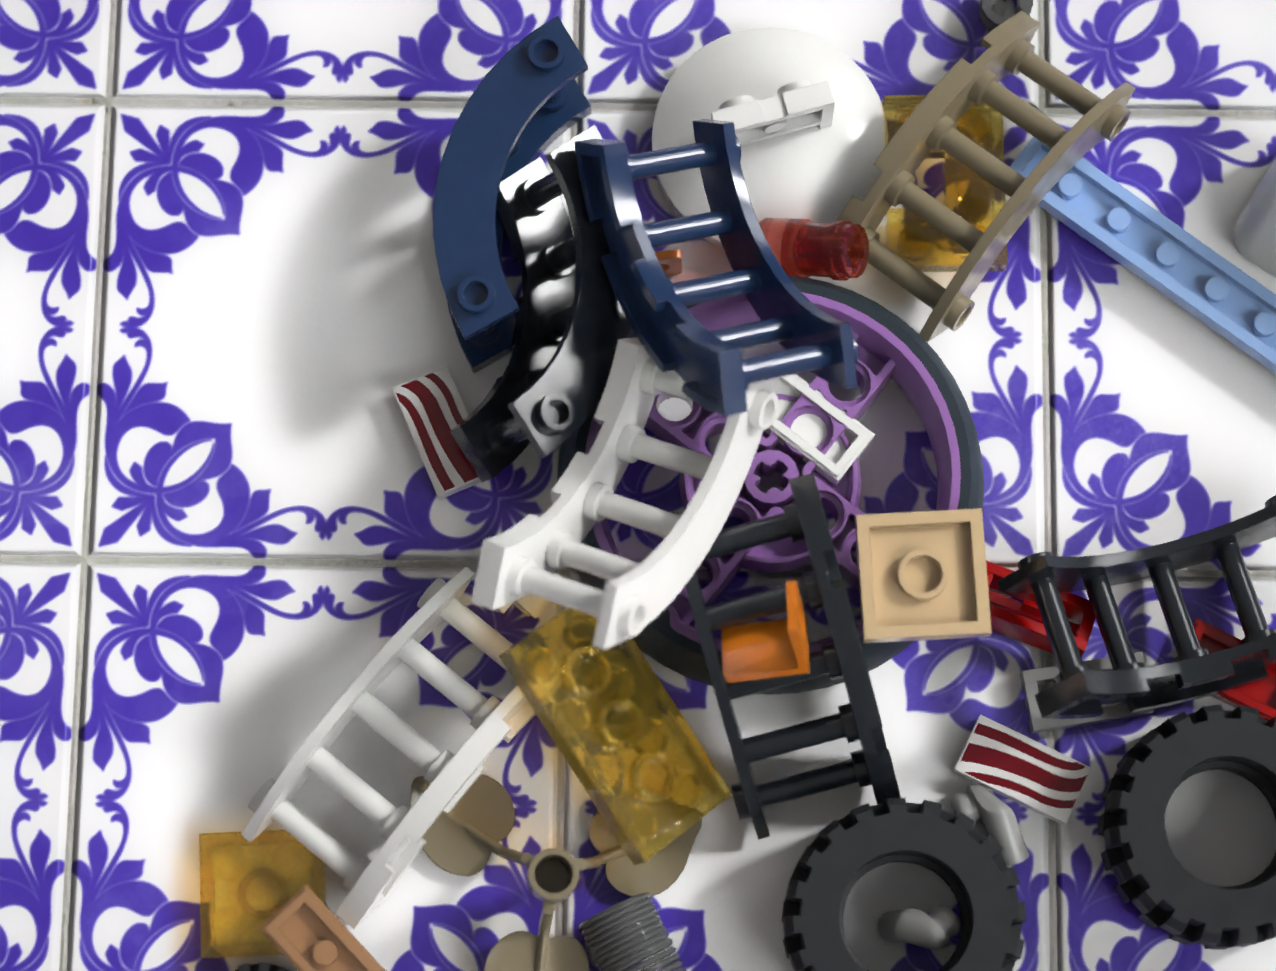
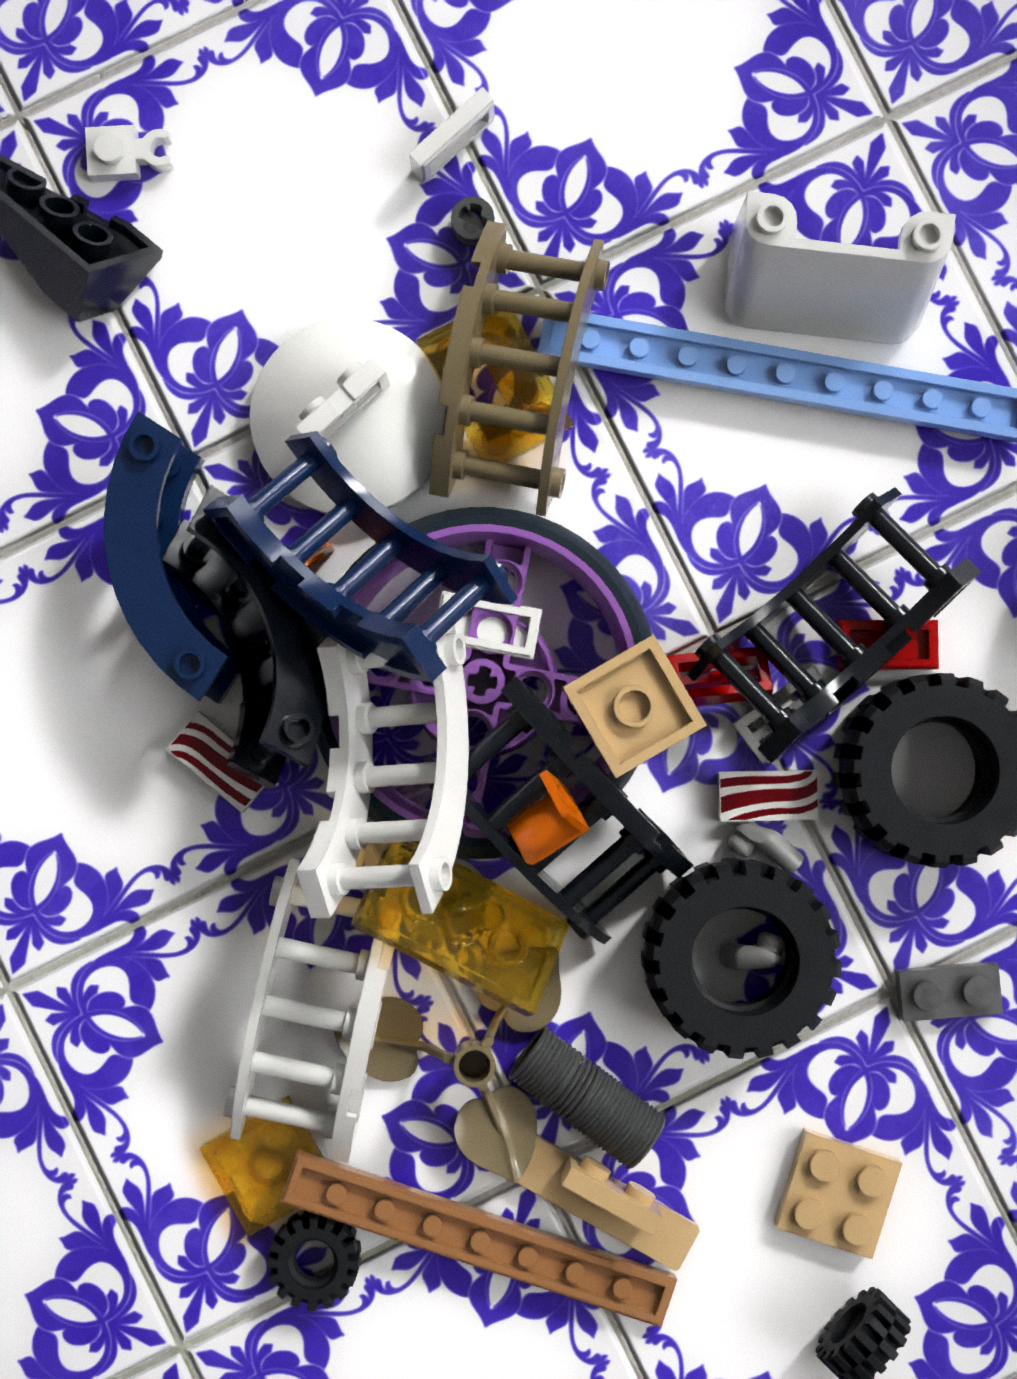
camera: 30 degrees left, 10 degrees up
(818, 248) = (425, 489): clear red piece -> none

